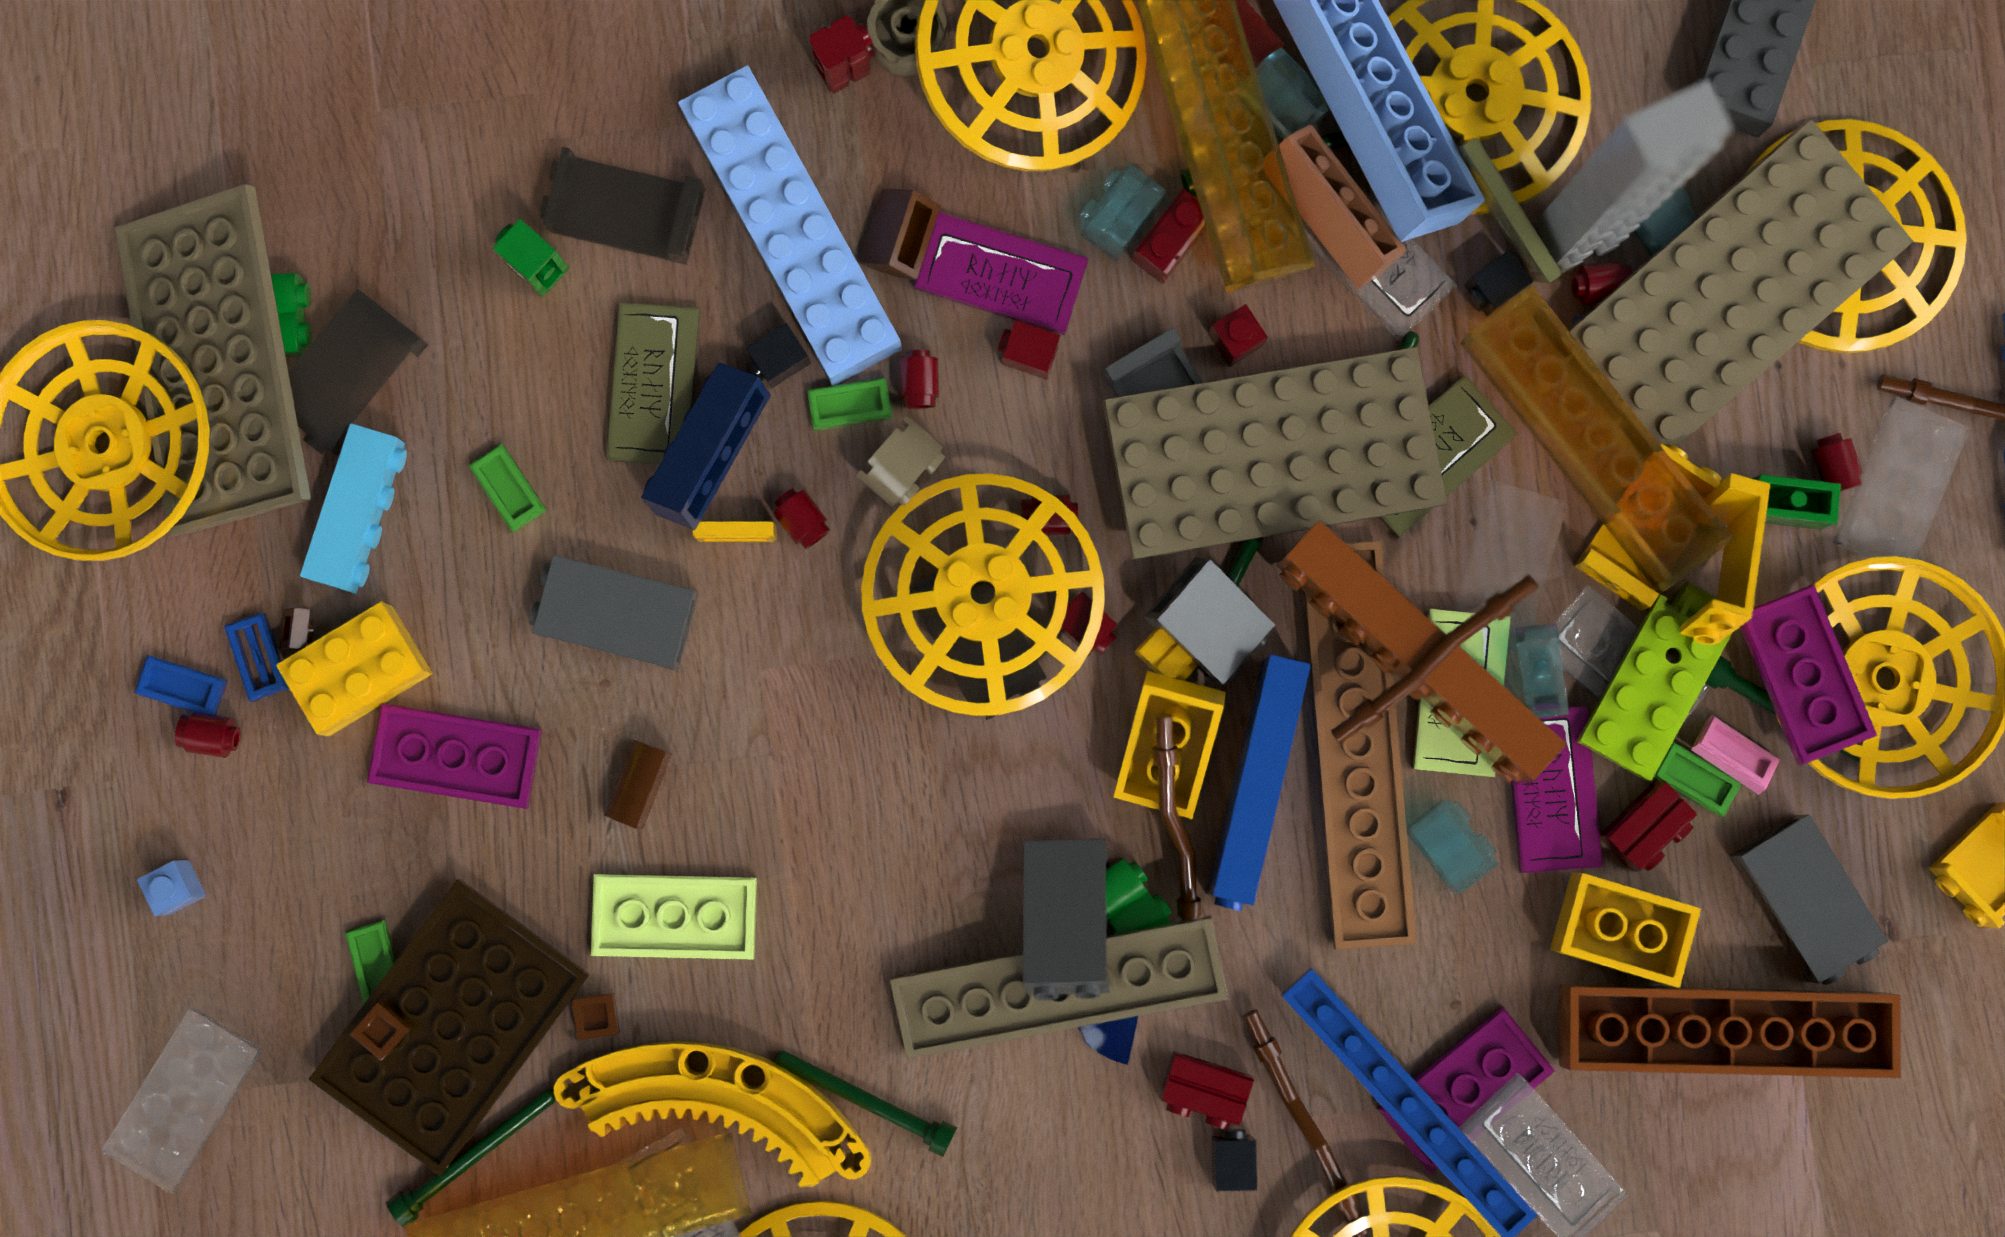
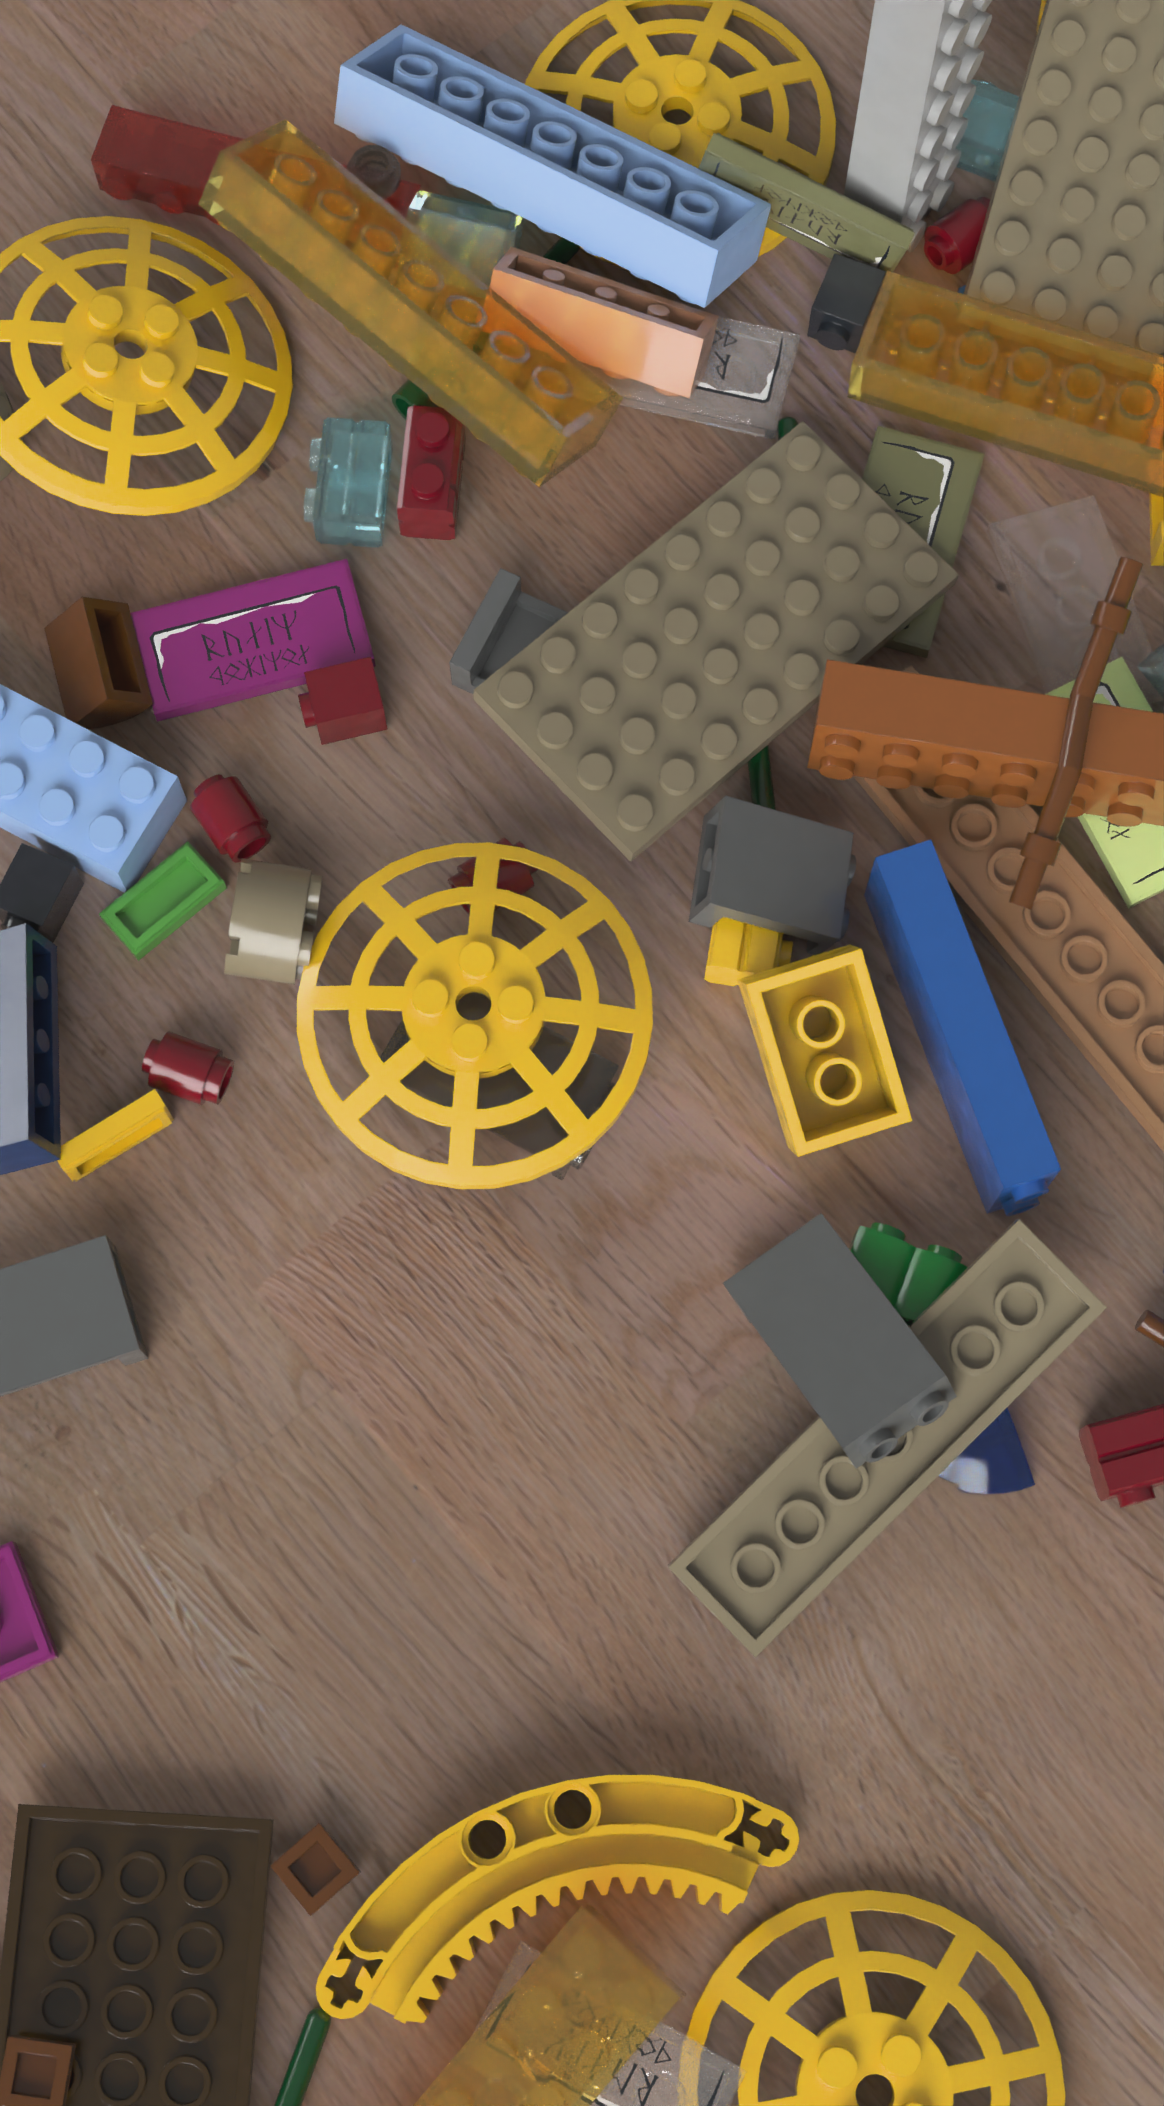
camera: 30 degrees left, 10 degrees down
(638, 784) = (184, 1528): reddish brown brick -> none
(673, 916) = (336, 1672): yellowish green tile -> none
(935, 1135) = (855, 1733): dark green piece -> none
(1077, 620) = (615, 978): dark red brick -> none
(1166, 757) = (832, 1059): reddish brown bar -> none
(1237, 335) = (583, 536): dark red brick -> none
(1259, 20) = (376, 169): none -> clear smoke plate

